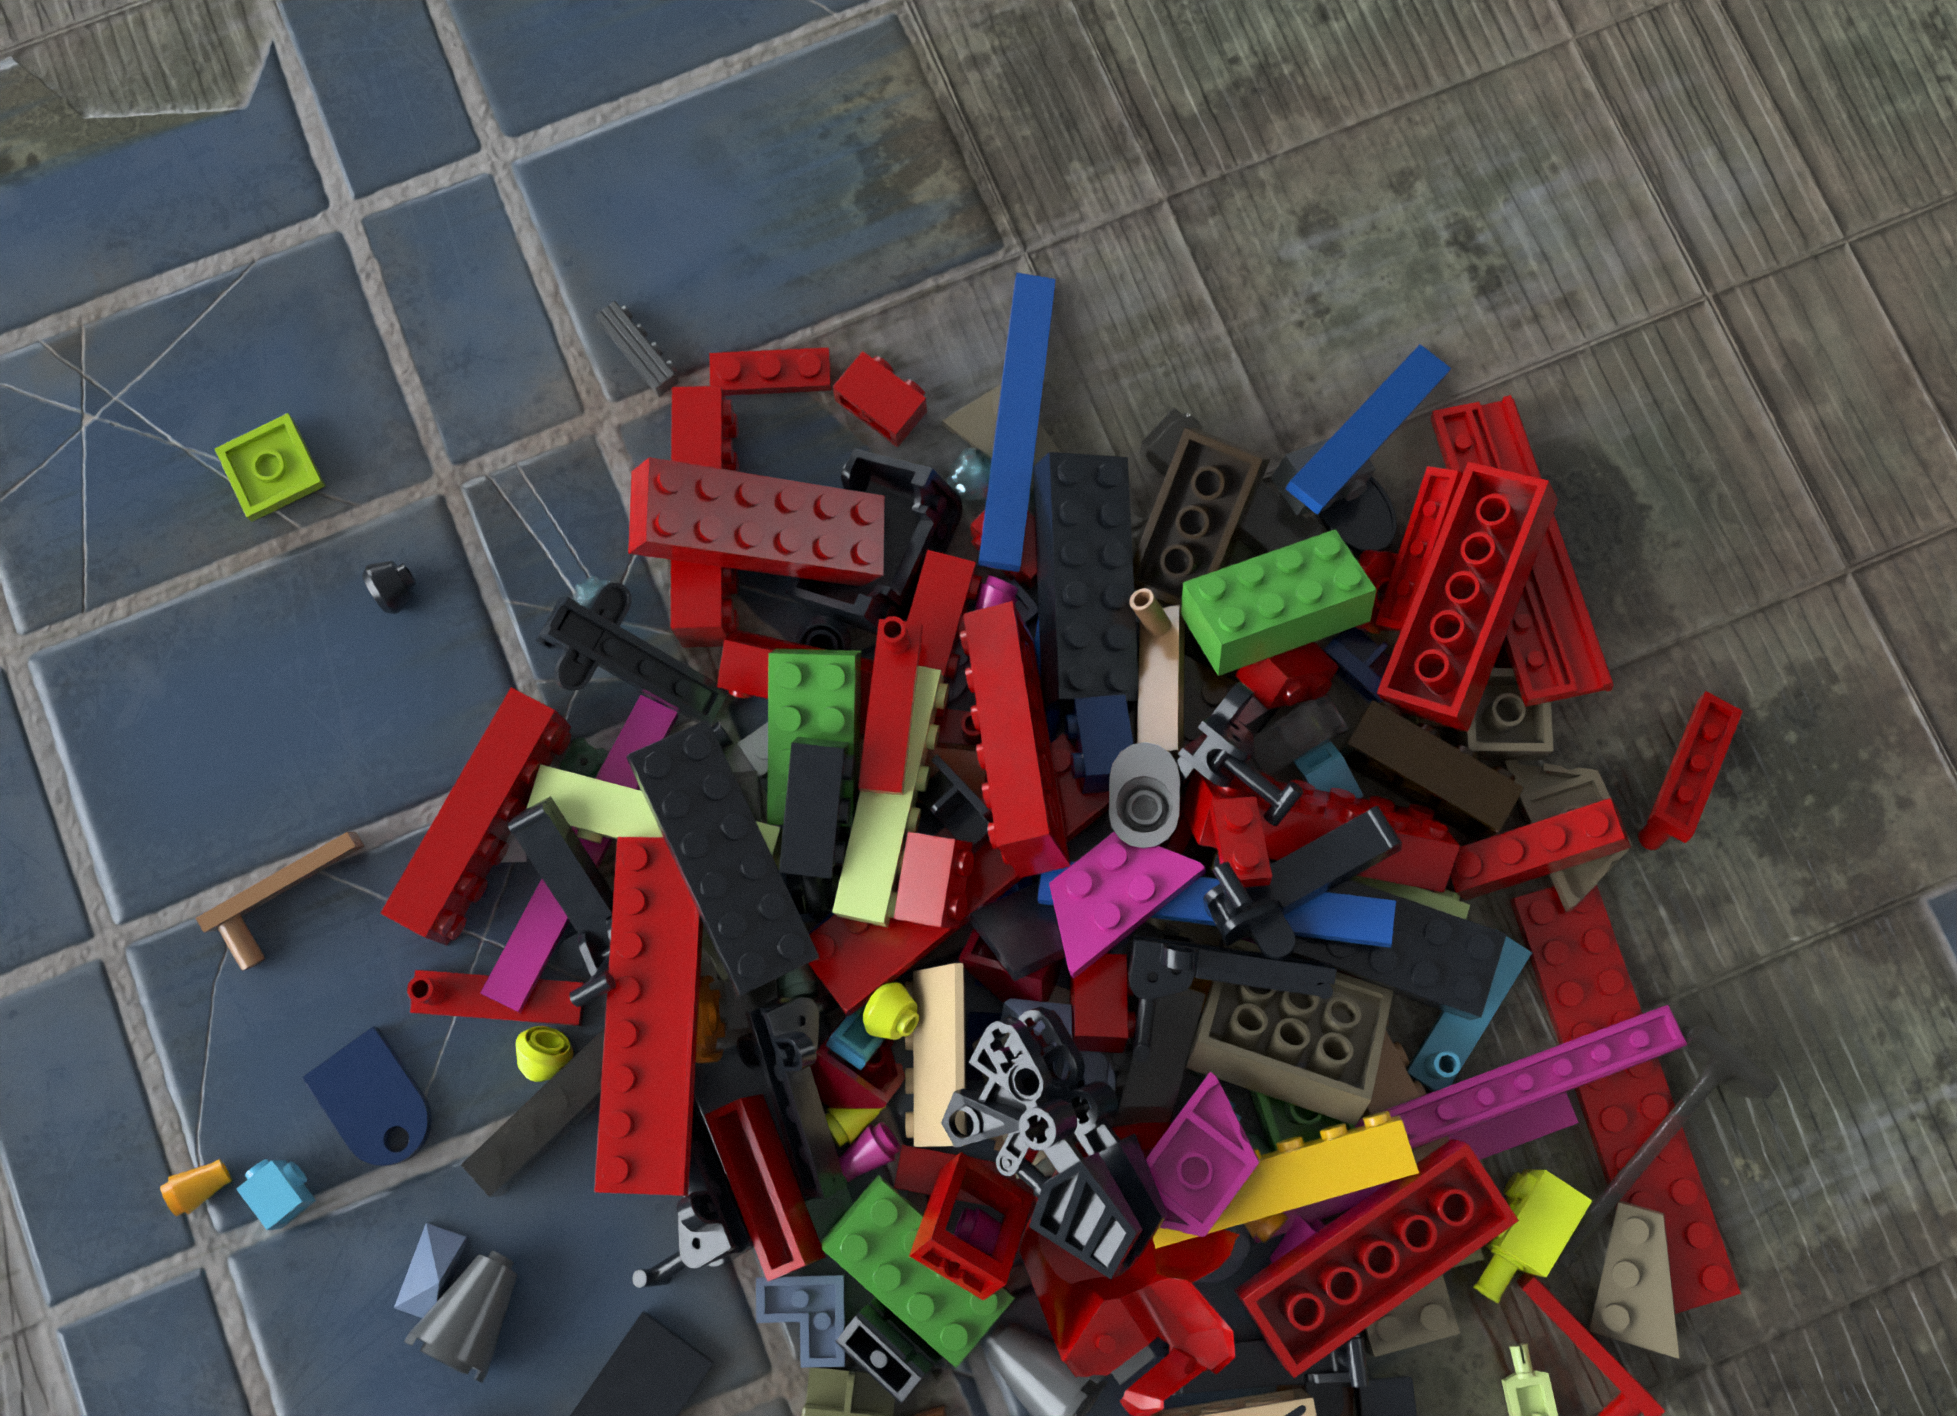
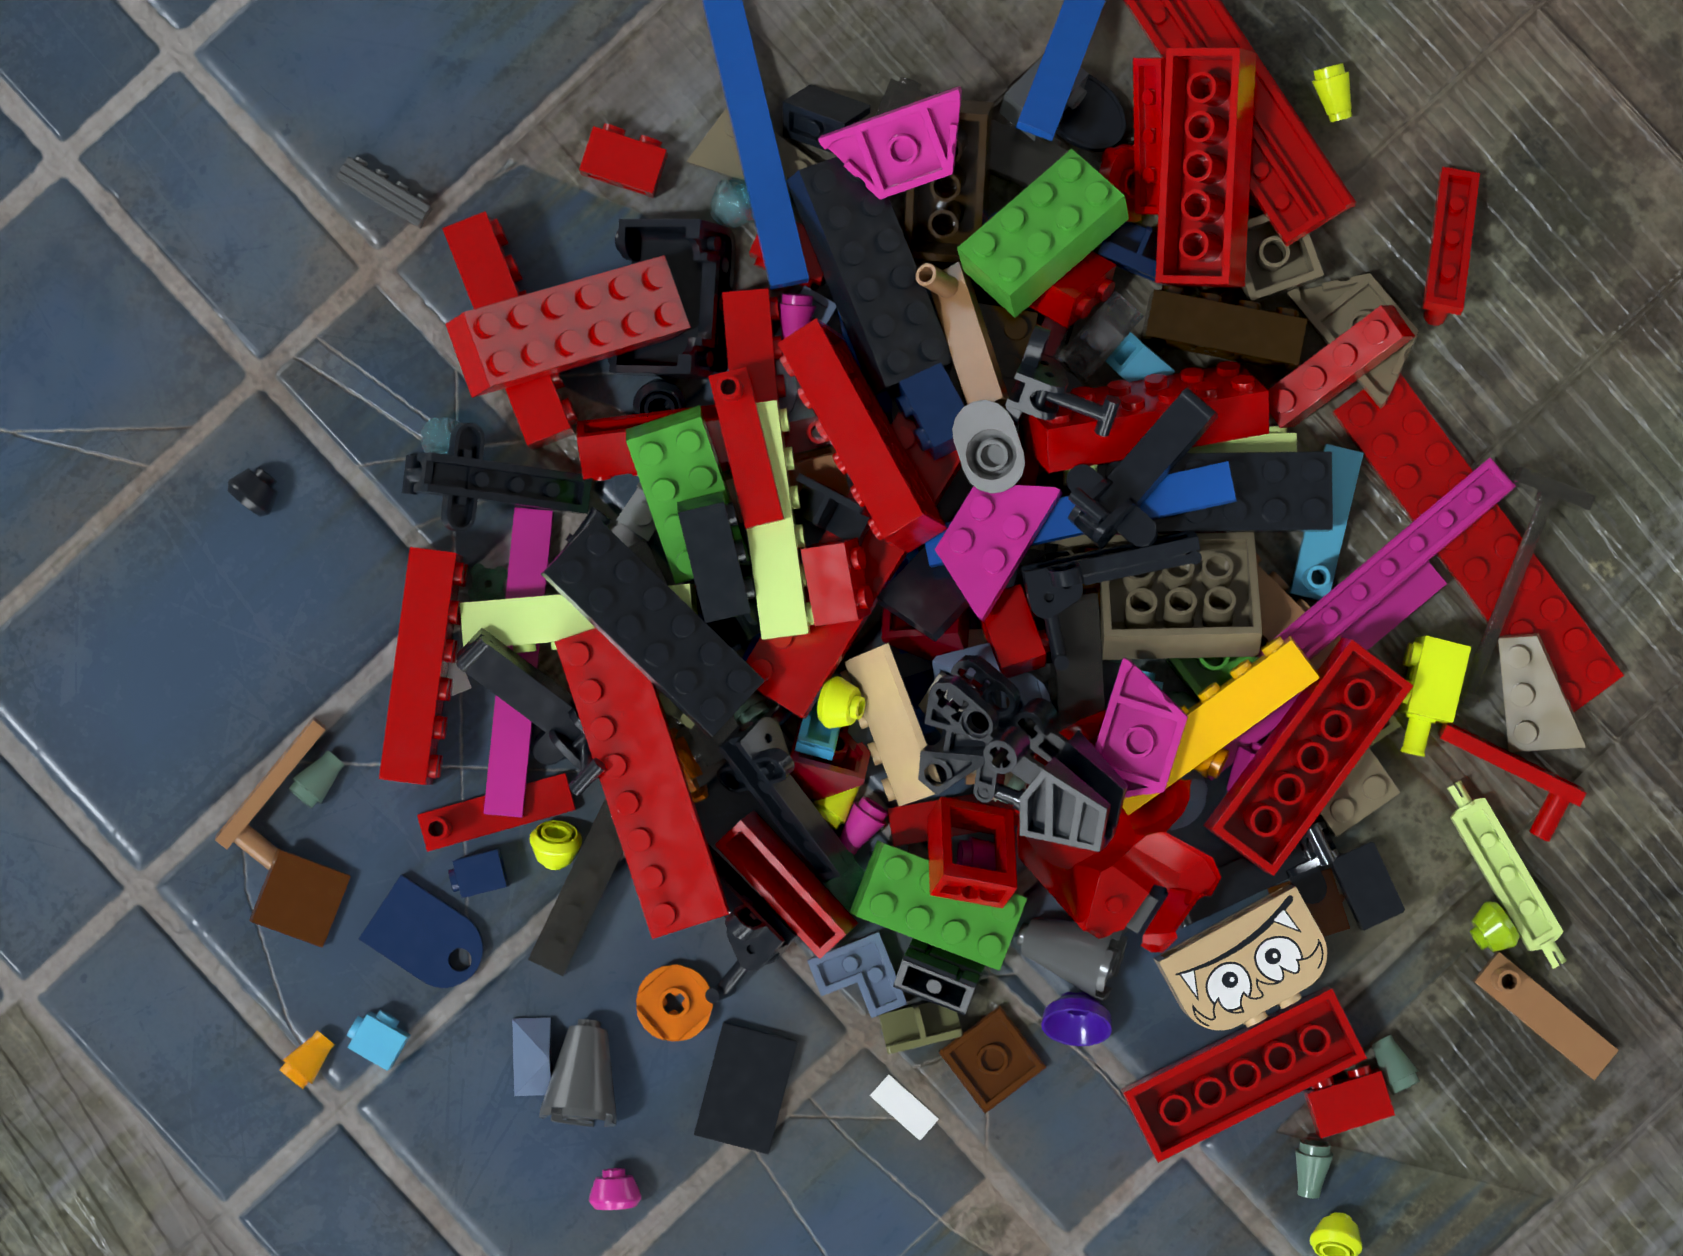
camera: 20 degrees left, 10 degrees up
(259, 1012) = (300, 898): none -> reddish brown tile
(269, 467) = (99, 422): lime plate -> none
(328, 896) = (315, 780): none -> sand green cone
(452, 1055) = (478, 874): none -> dark blue brick
(577, 1257) = (651, 1003): none -> orange plate
(771, 371) = (513, 170): red plate -> none
(1090, 423) = (818, 112): none -> black panel
(1163, 460) = (901, 145): none -> dark pink wing
(1241, 839) = (1083, 460): red plate -> none
(1617, 577) = (1334, 91): none -> neon yellow cone

